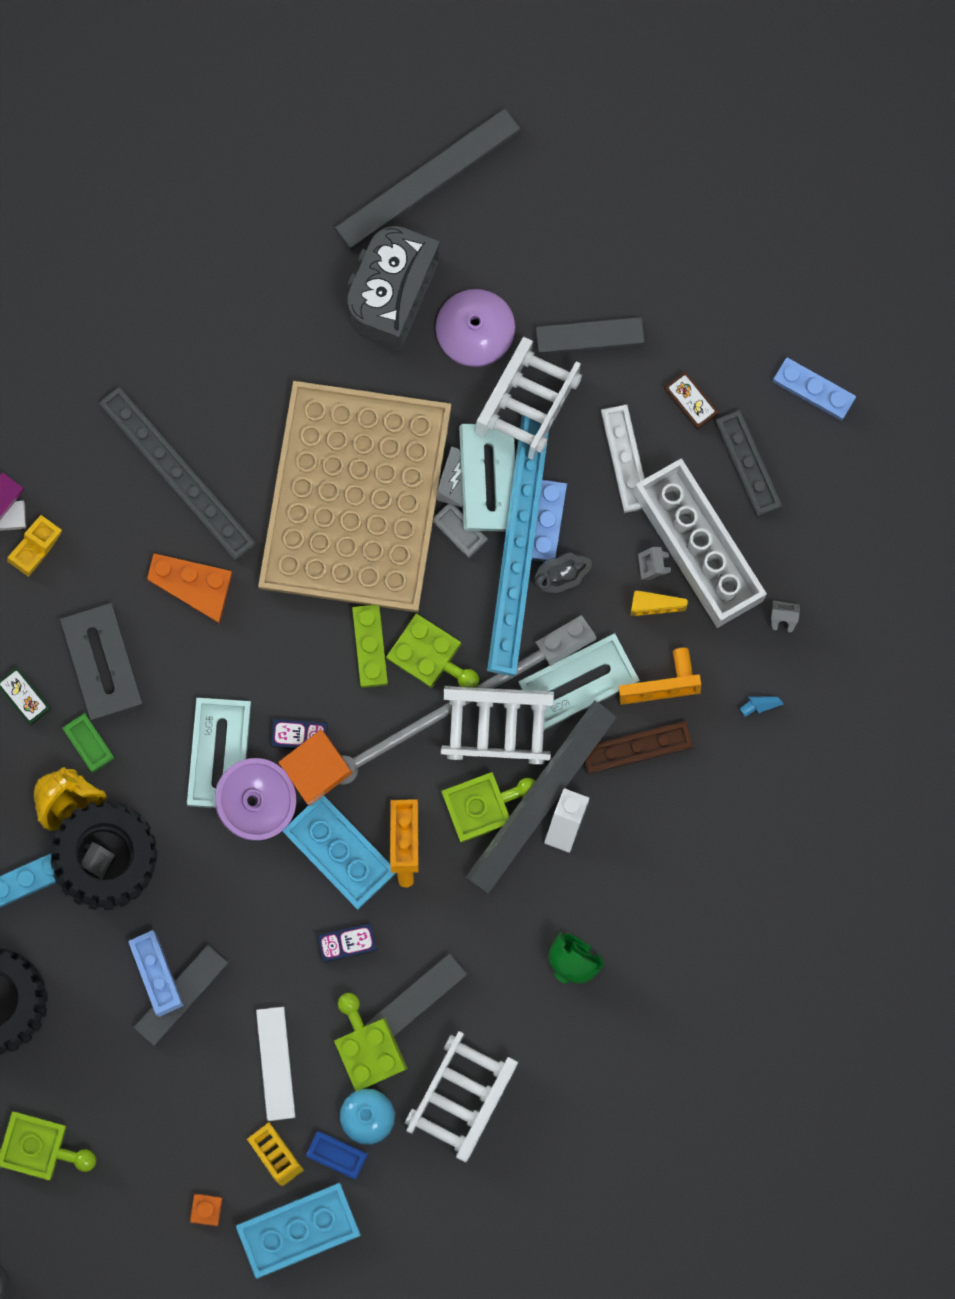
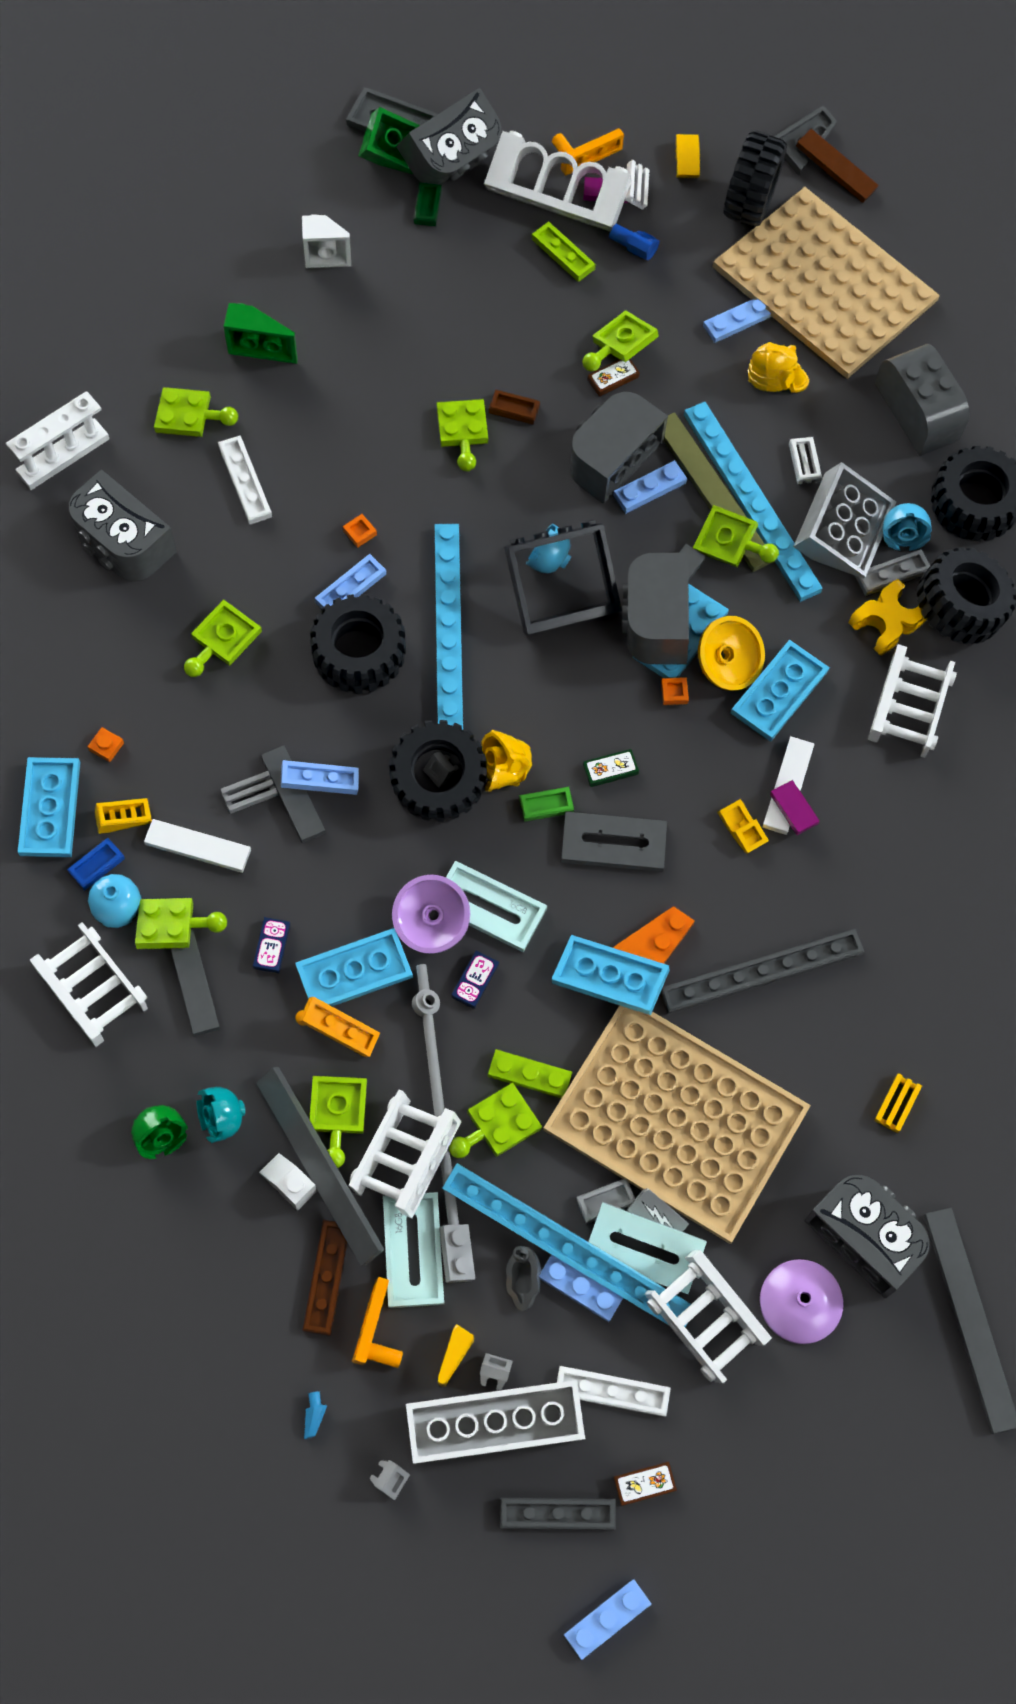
camera: 105 degrees right, 10 degrees down
(181, 1024) = (265, 776): none -> light grey tile
(244, 607) = (610, 974): none -> medium azure plate
(255, 306) = (907, 1084): none -> yellow tile
(315, 767) = (437, 977): orange tile -> none
(533, 909) = (219, 1113): none -> teal cylinder
(590, 336) = (750, 1411): dark grey tile -> none

